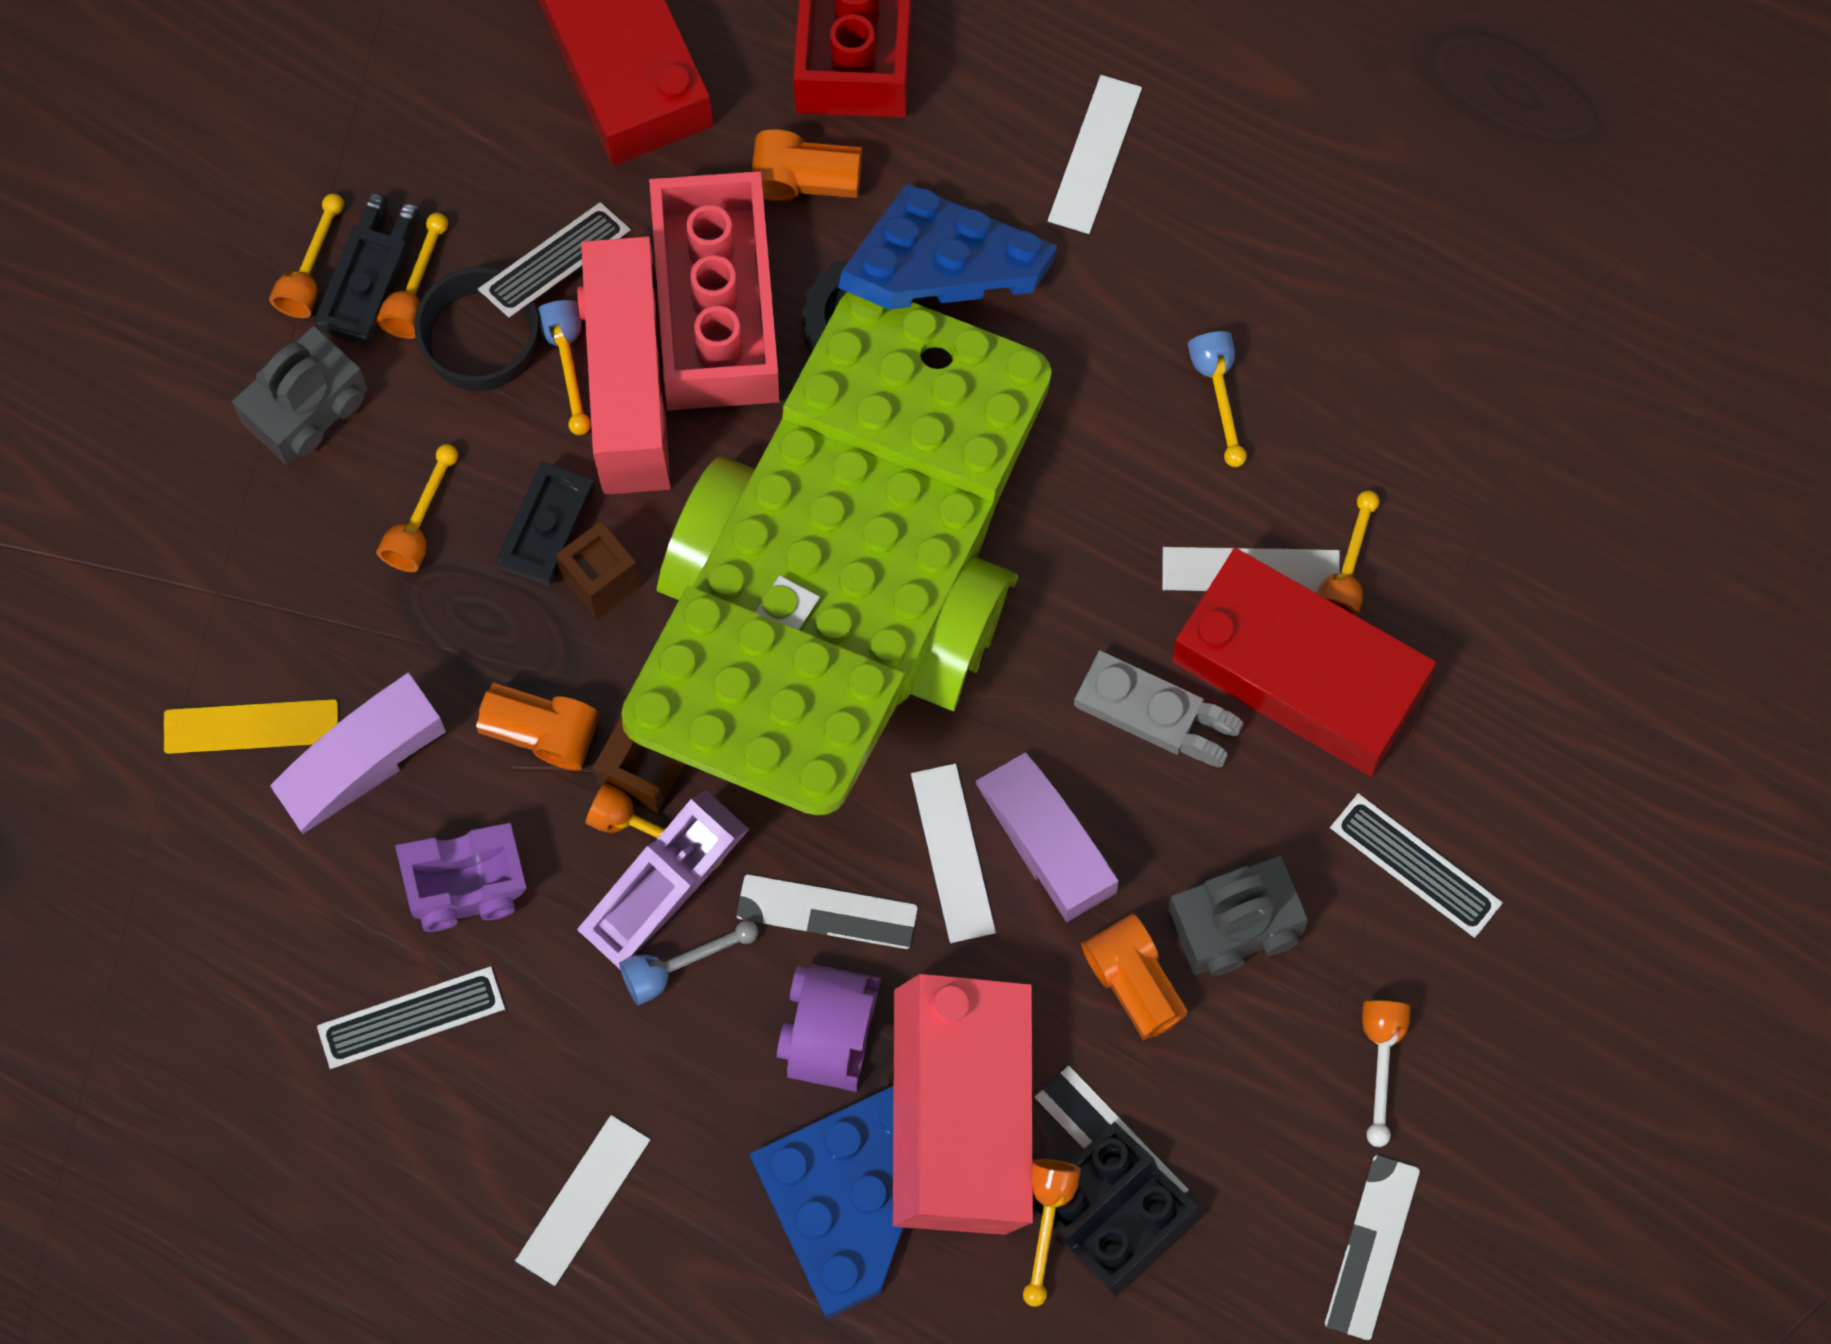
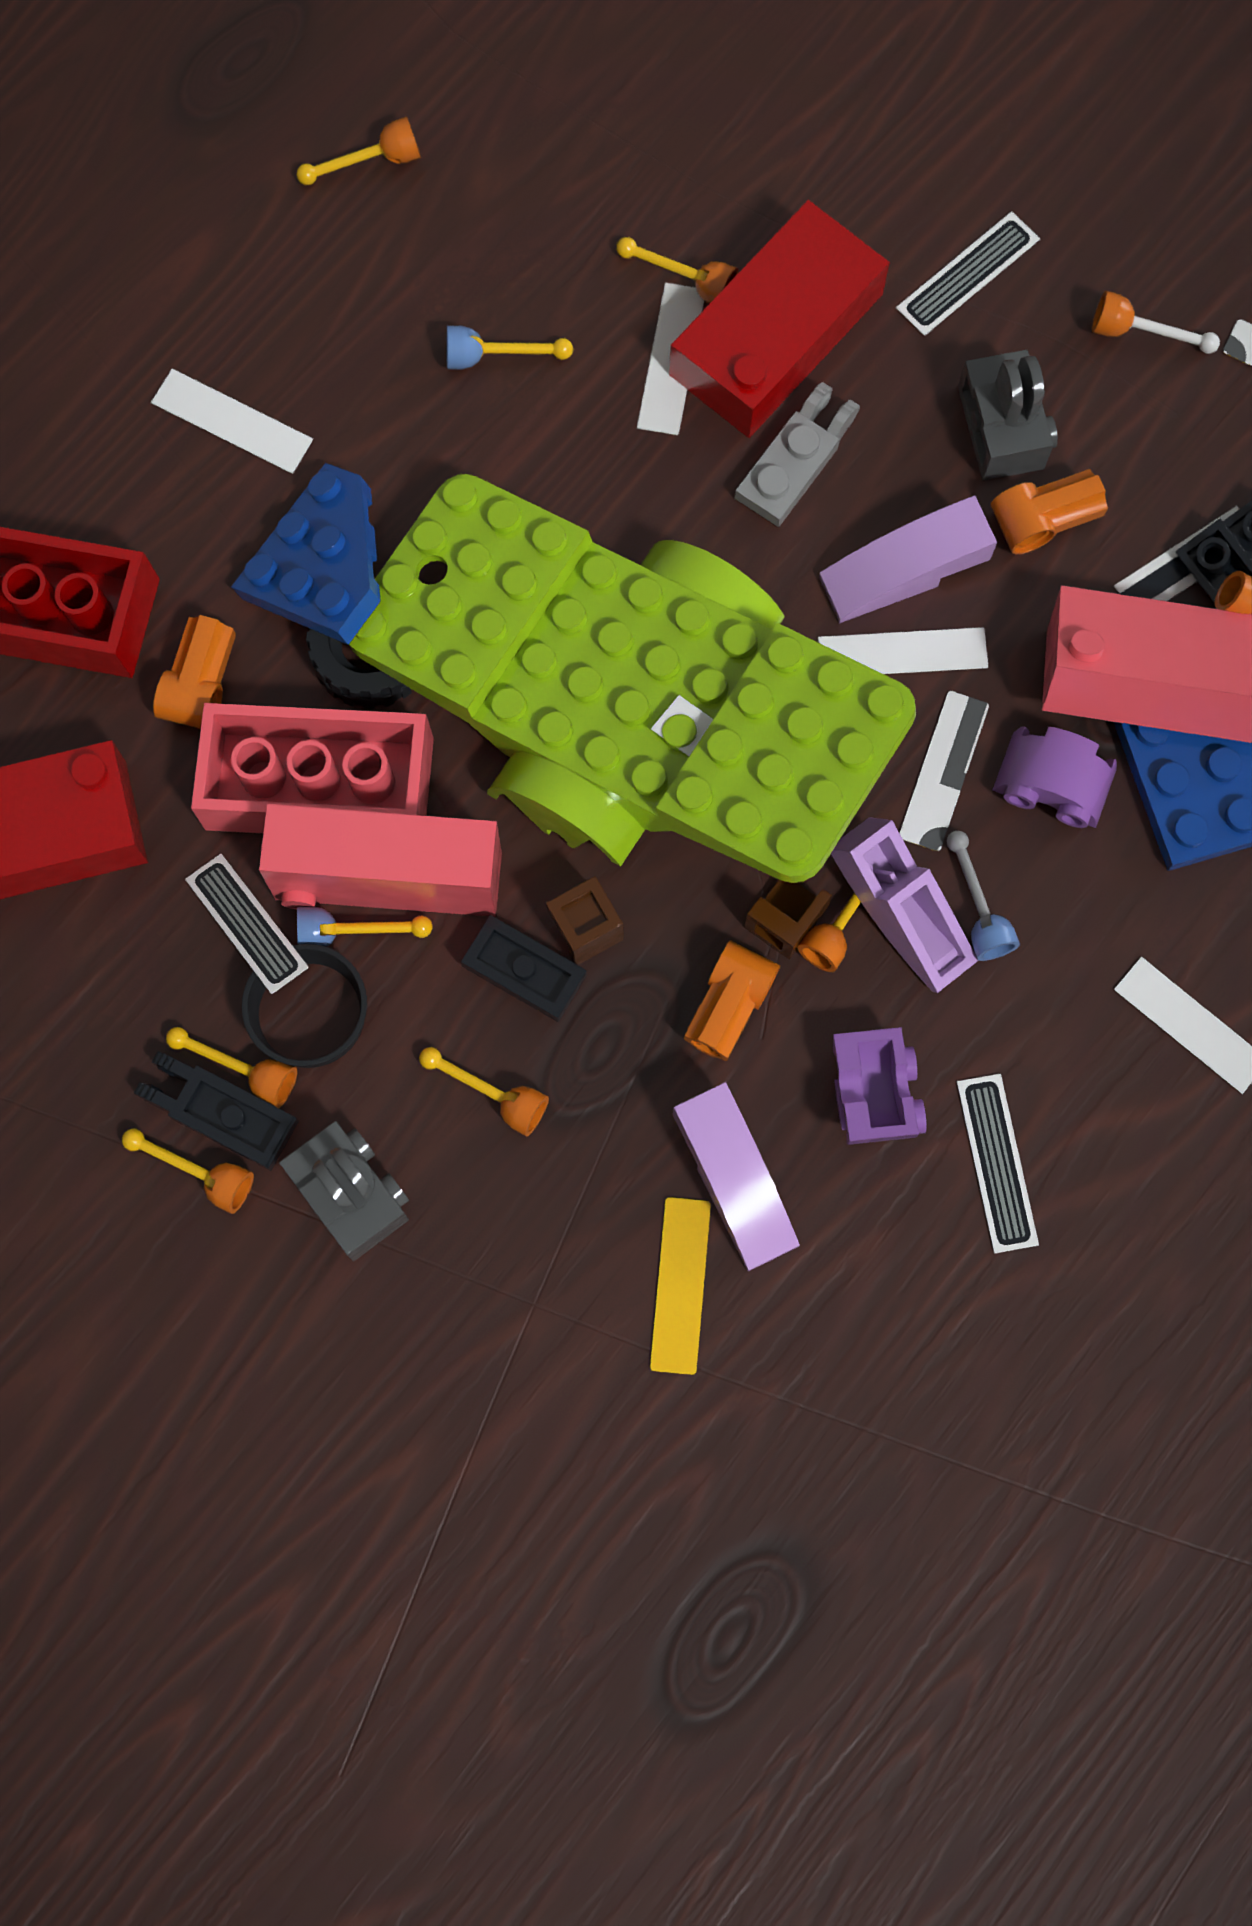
camera: 85 degrees left, 5 degrees up
(1439, 250) = (395, 143): none -> hinge

